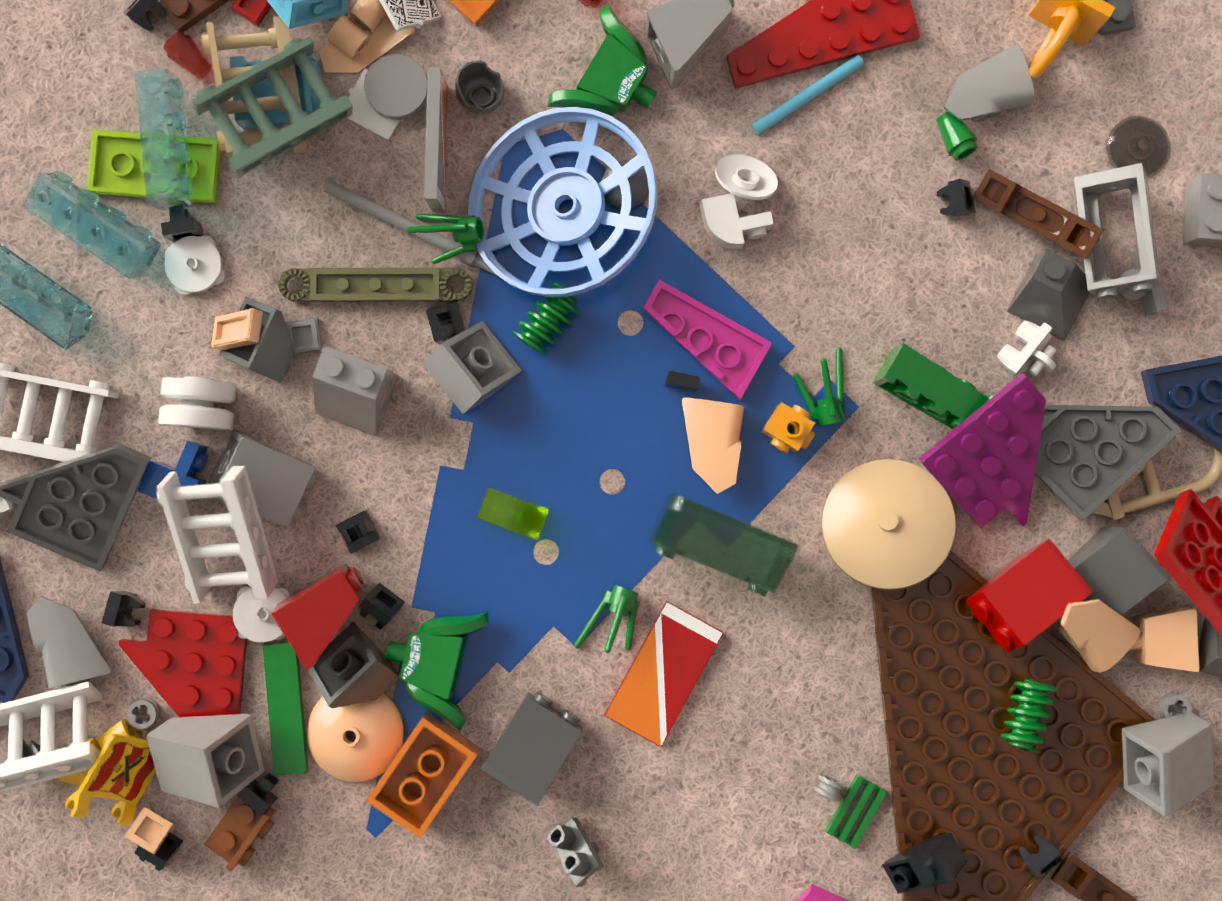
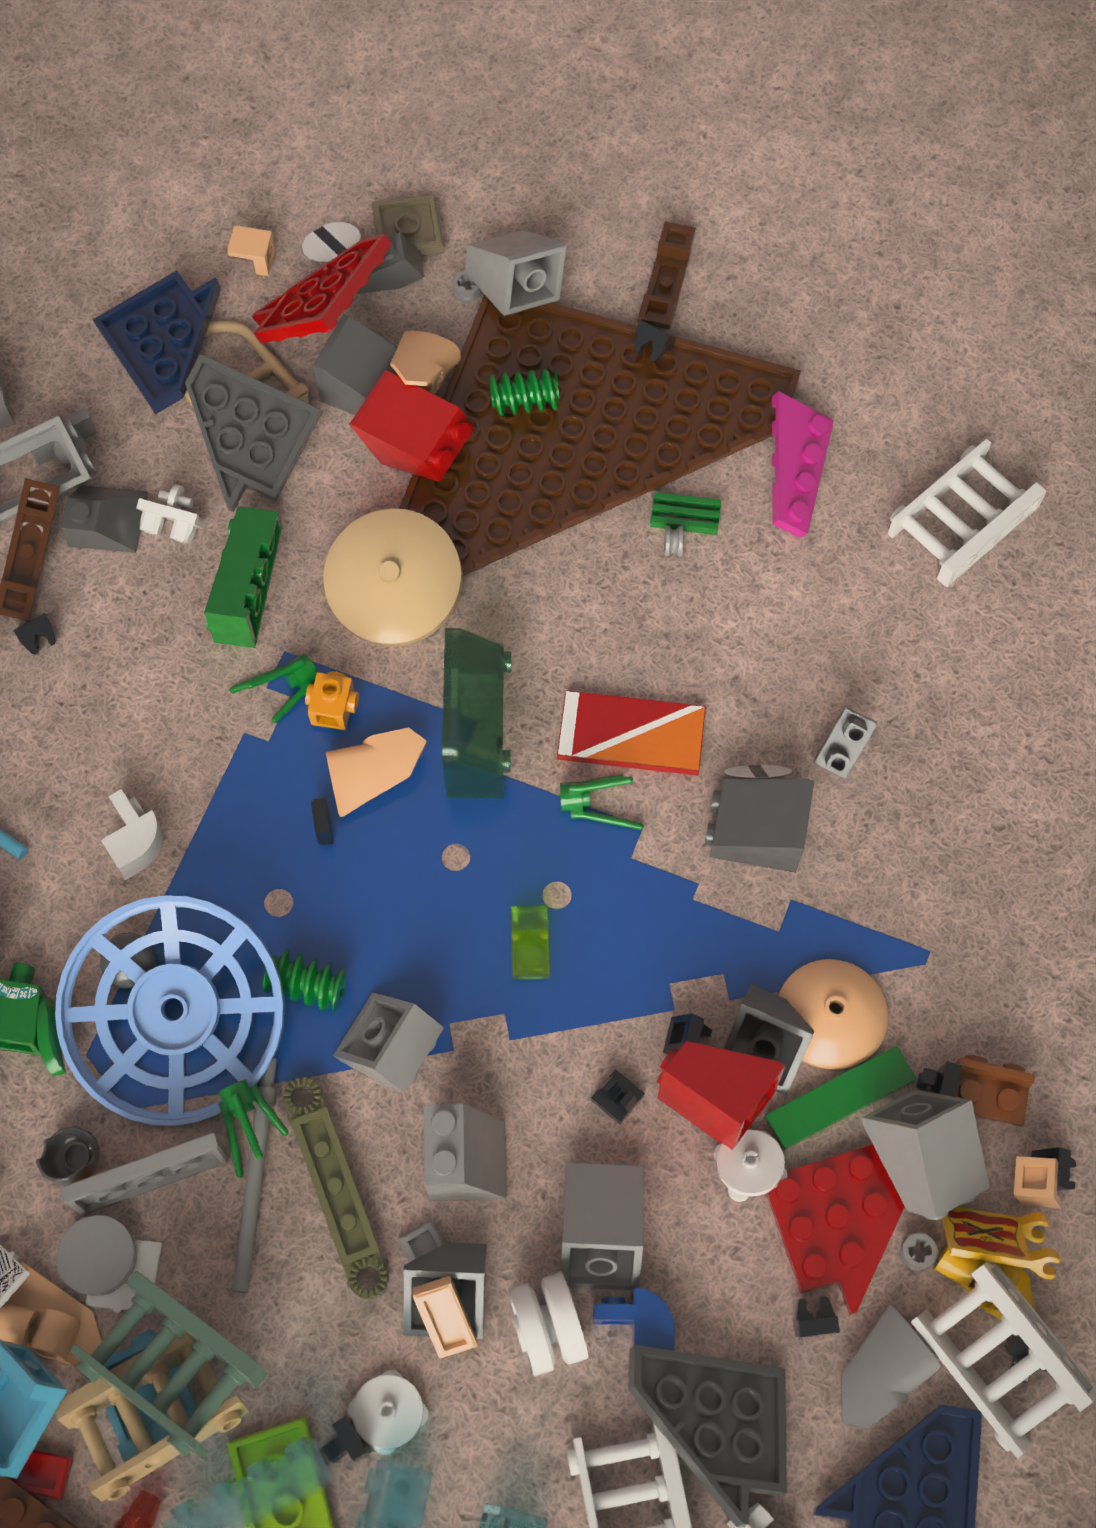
camera: 110 degrees left, 20 degrees down
(242, 517) = (654, 1207): white fence -> none
(423, 774) = (839, 917): orange brick -> none
(434, 661) = (718, 955): green torso -> none
(445, 321) = (348, 1094): black tile -> none
(579, 764) = (758, 771): none -> white sticker
(711, 338) = (265, 810): dark pink wing -> none
(746, 177) = (78, 838): white dish -> none
(926, 864) = (705, 429): black slope -> none
(993, 454) = (286, 506): magenta wing -> none
(1168, 639) = (403, 308): light nougat torso -> none

